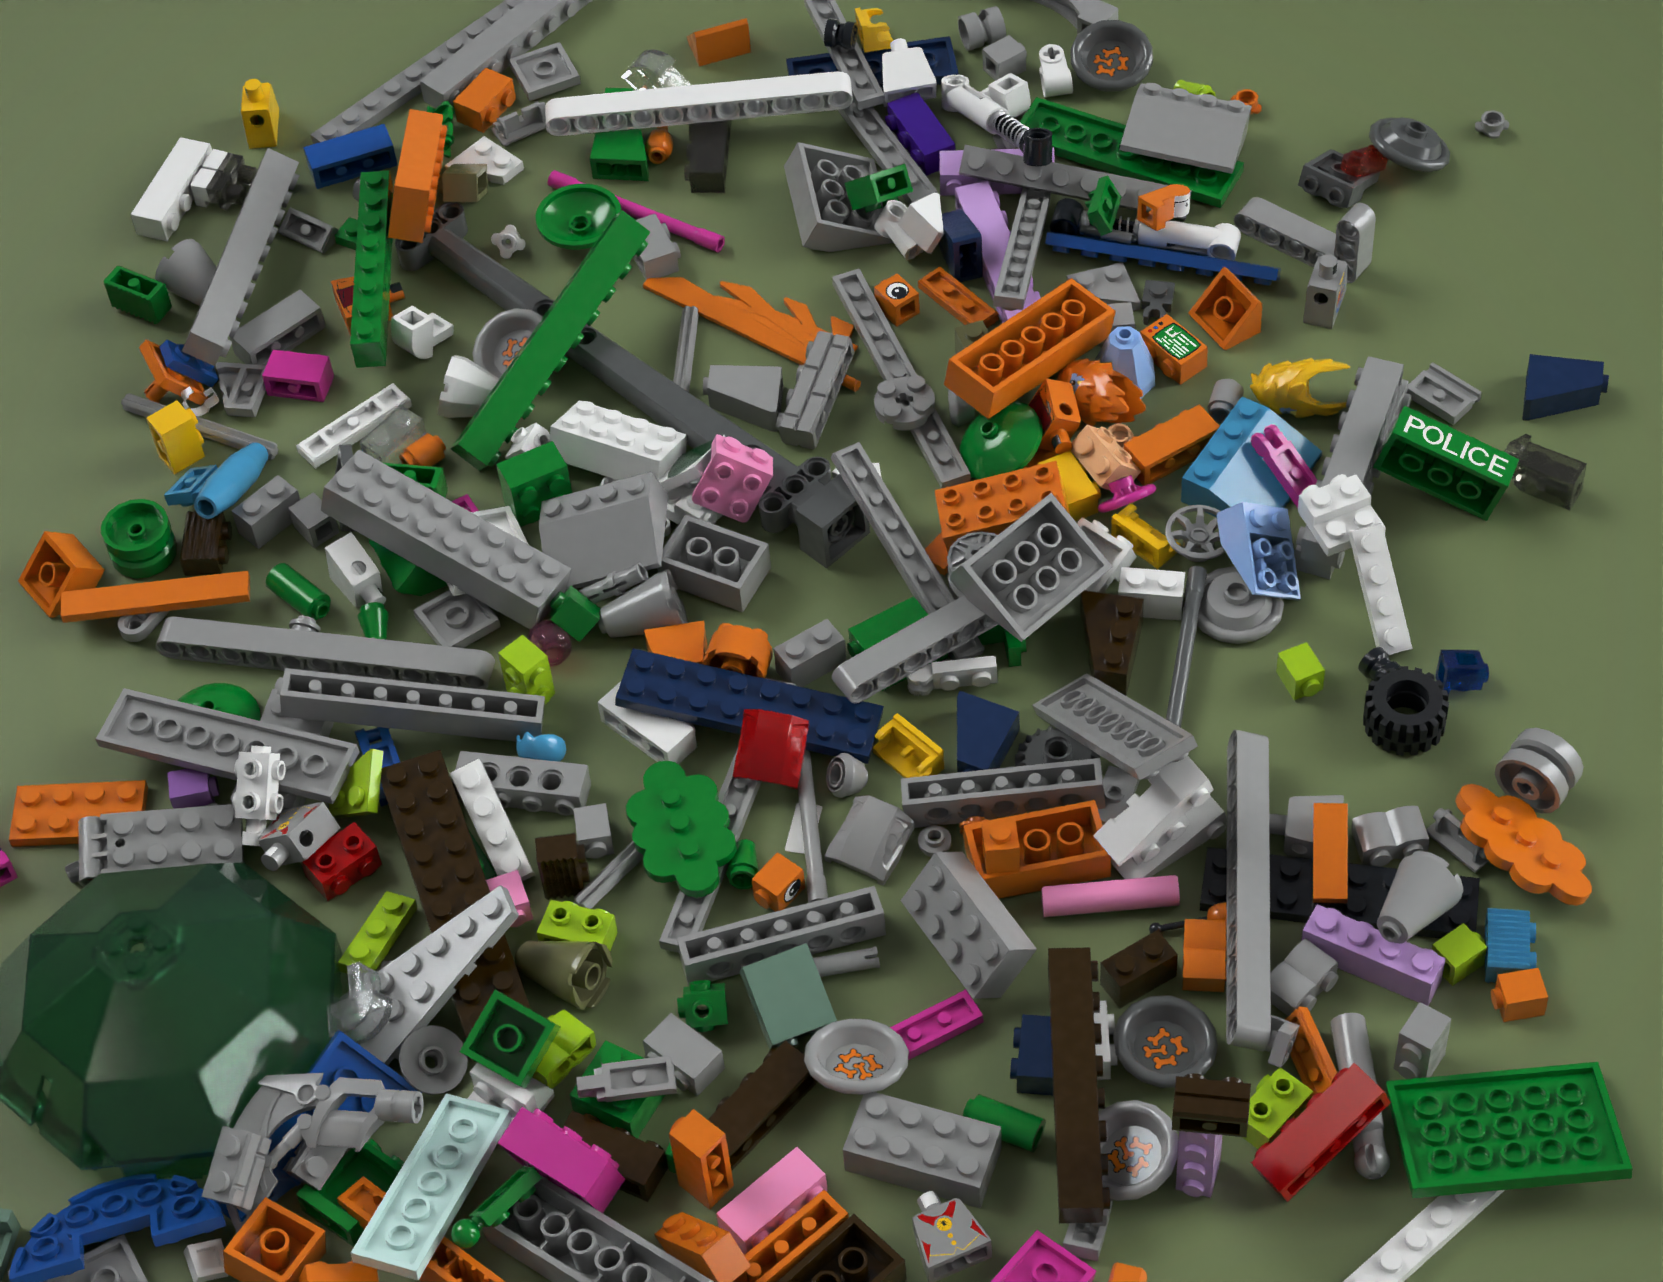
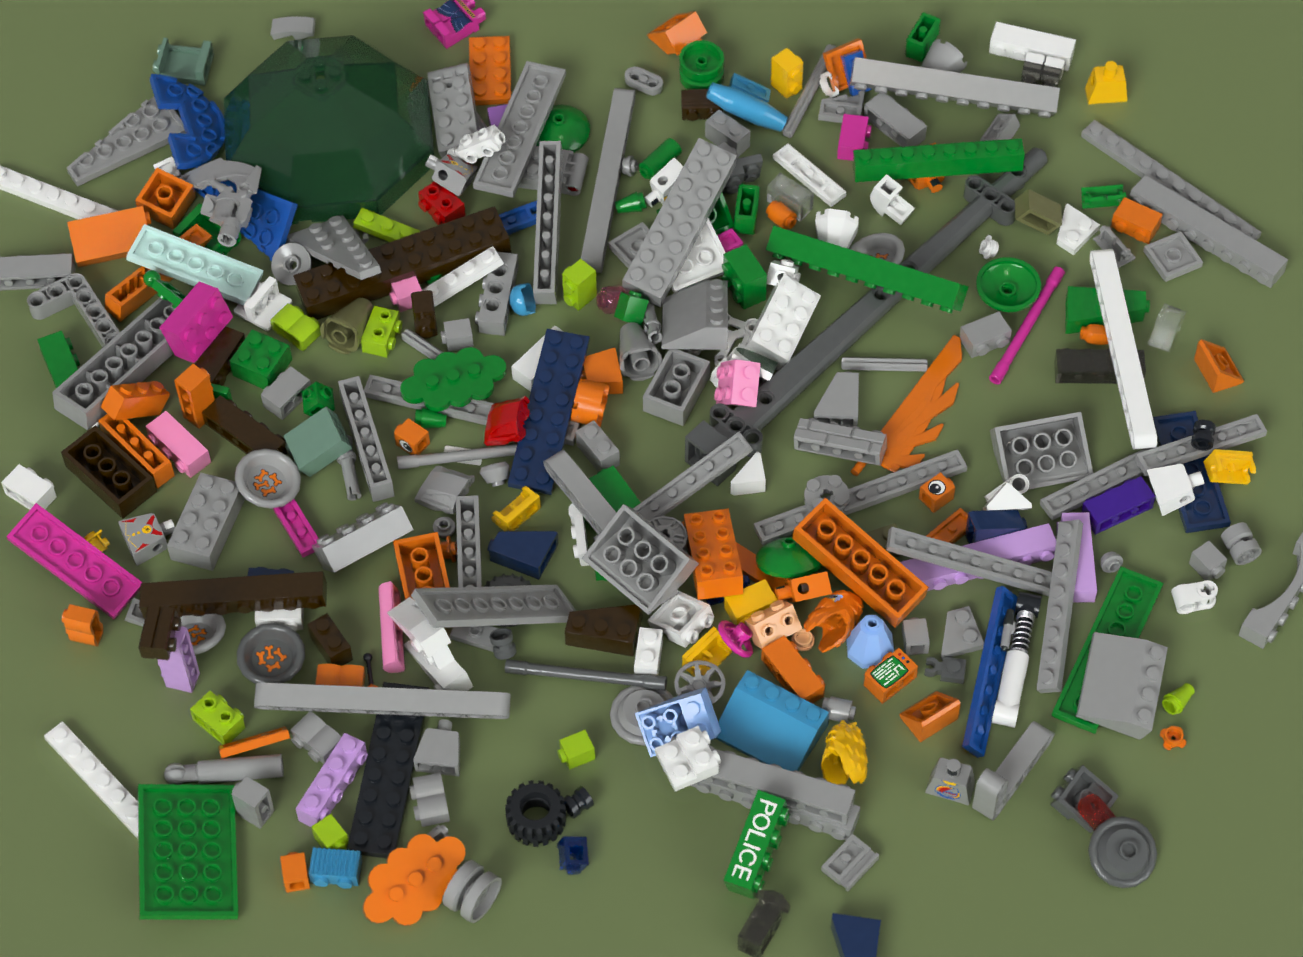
camera: 85 degrees right, 5 degrees up
(155, 596) = (651, 82): orange tile -> none
(236, 1168) = (202, 162): light grey brick -> none
(350, 155) = (1071, 145): blue brick -> none
(361, 788) = (484, 201): lime wing -> none
(366, 1009) = (319, 218): clear brick -> none
(417, 176) = (1019, 171): orange brick -> none
(510, 1039) = (283, 289): green brick -> none
(629, 1080) = (250, 354): light grey hinge -> none
(878, 188) = (1042, 470): green brick -> none
(962, 98) = (1119, 545): piece -> none
(1000, 846) = (408, 546): orange brick -> none
(1010, 93) = (1155, 558): white brick -> none
(1017, 1126) = (225, 561): green brick -> none
(1103, 205) = (1024, 620): green plate -> none
(1111, 55) = (1212, 634): dark grey piece -> none
(1165, 205) = (1028, 662): orange leg -> none
(1281, 1040) = (263, 720): light grey bracket -> none
(1283, 461) = (767, 741): dark pink hinge -> none
(1320, 1131) = (190, 737): red brick -> none
(1330, 853) = (407, 752): orange tile -> none
(1380, 588) = (633, 792): white plate -> none
(1418, 896) = (354, 795): light grey cone -> none
(1492, 124) = (1159, 915): light grey plate -> none

